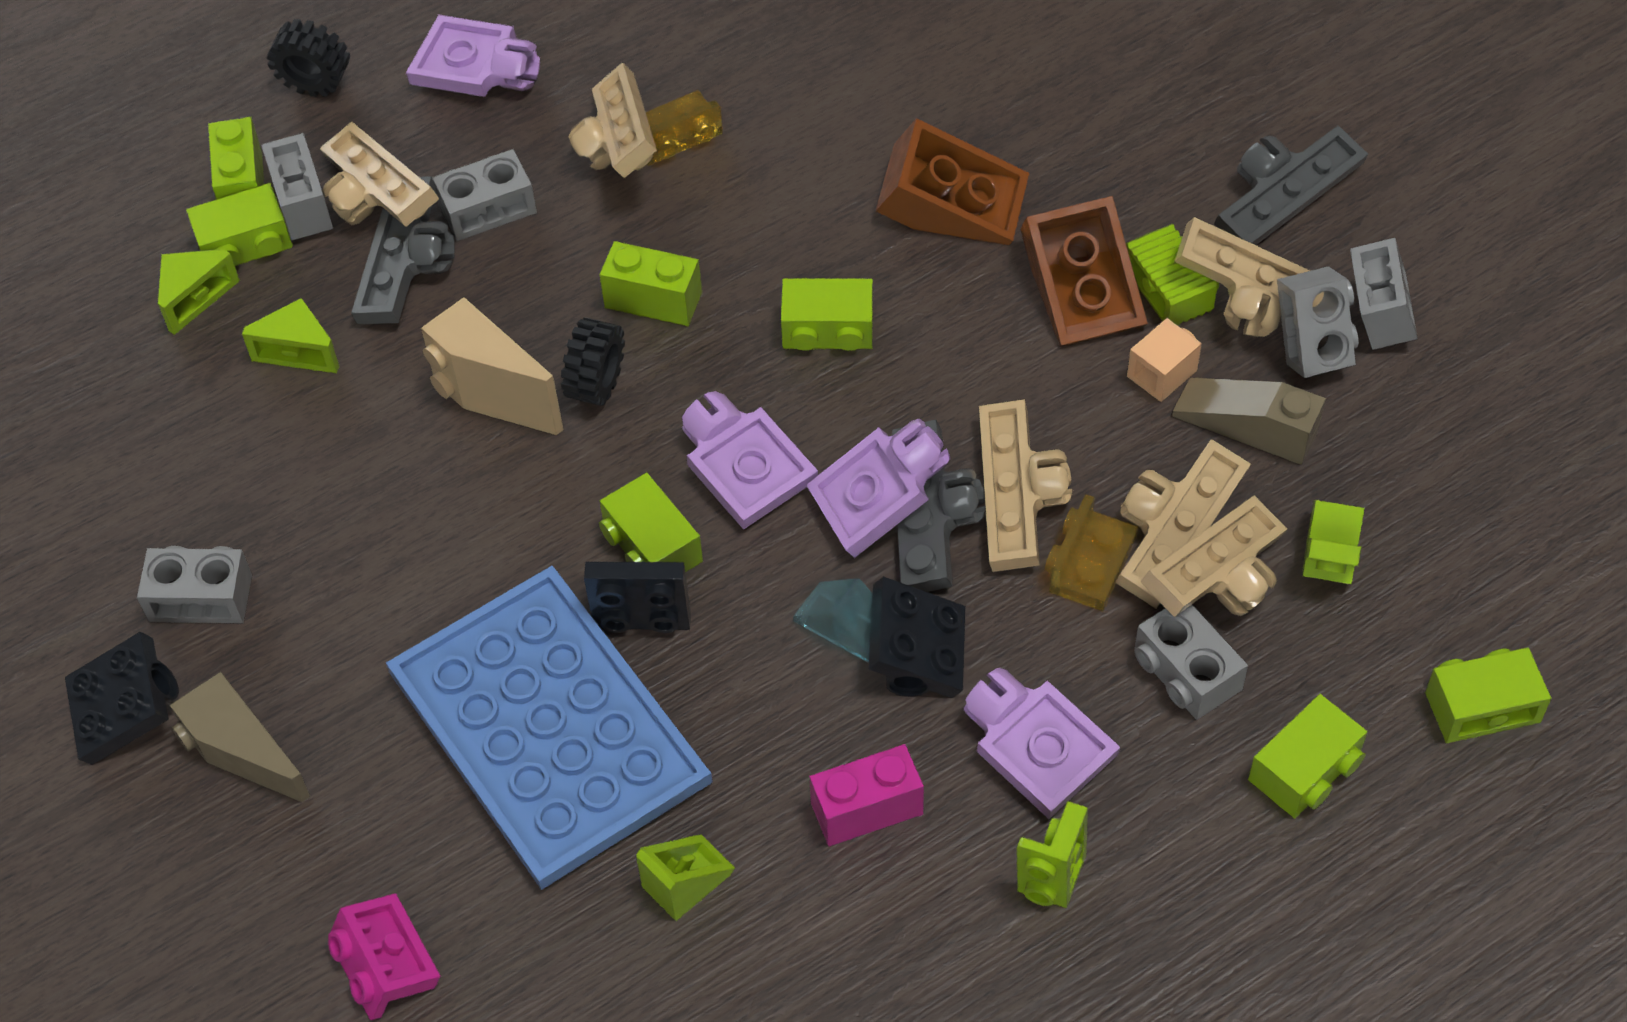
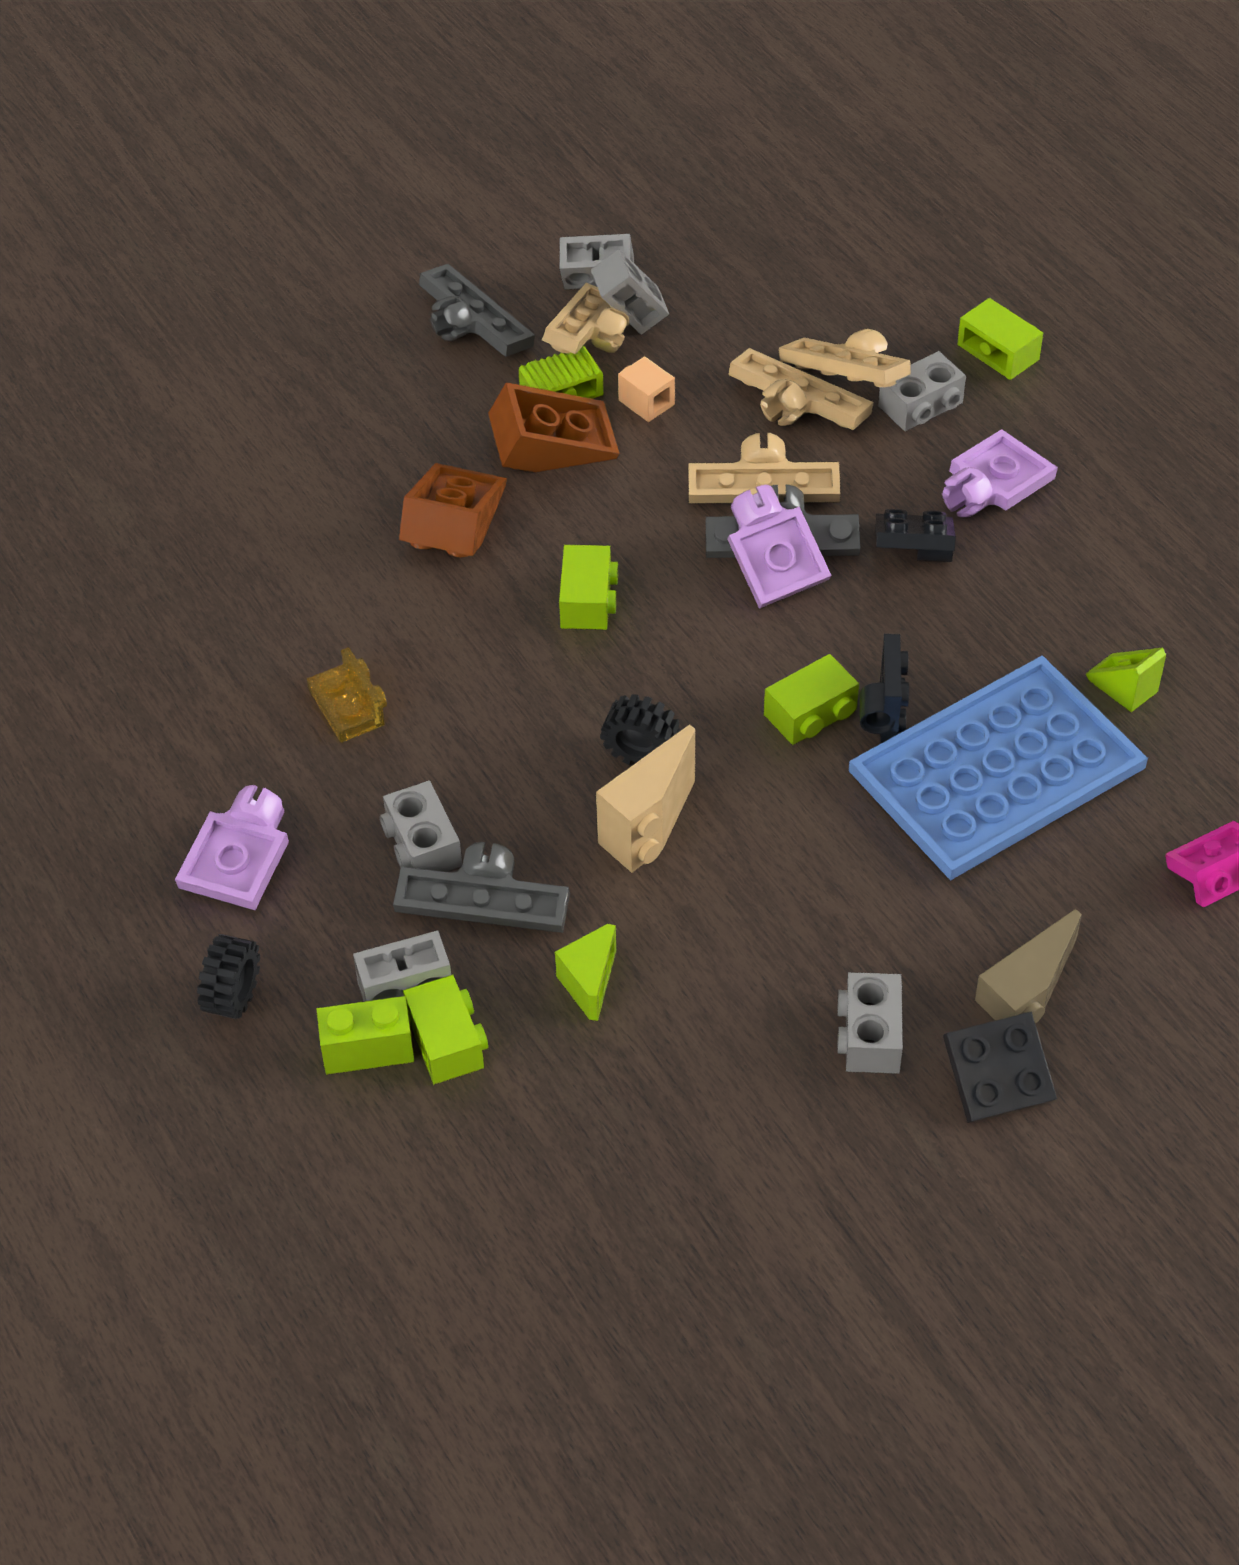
camera: 90 degrees left, 5 degrees down
(192, 284) = (517, 1066): lime slope -> none
(372, 178) = (401, 906): tan plate -> none
(620, 129) = (361, 718): tan plate -> none
(651, 283) = (545, 702): lime brick -> none
(744, 458) = (736, 641): lavender plate -> none
(840, 614) = (885, 585): clear light blue slope -> none
(866, 795) = (1054, 565): dark pink brick -> none
(1051, 869) = (1103, 451): lime bracket -> none
(1090, 555) = (827, 442): clear yellow bracket -> none
(1255, 413) = (702, 341): dark tan slope -> none
(1333, 542) = (819, 313): lime brick -> none
(1487, 694) = (944, 250): lime brick -> none

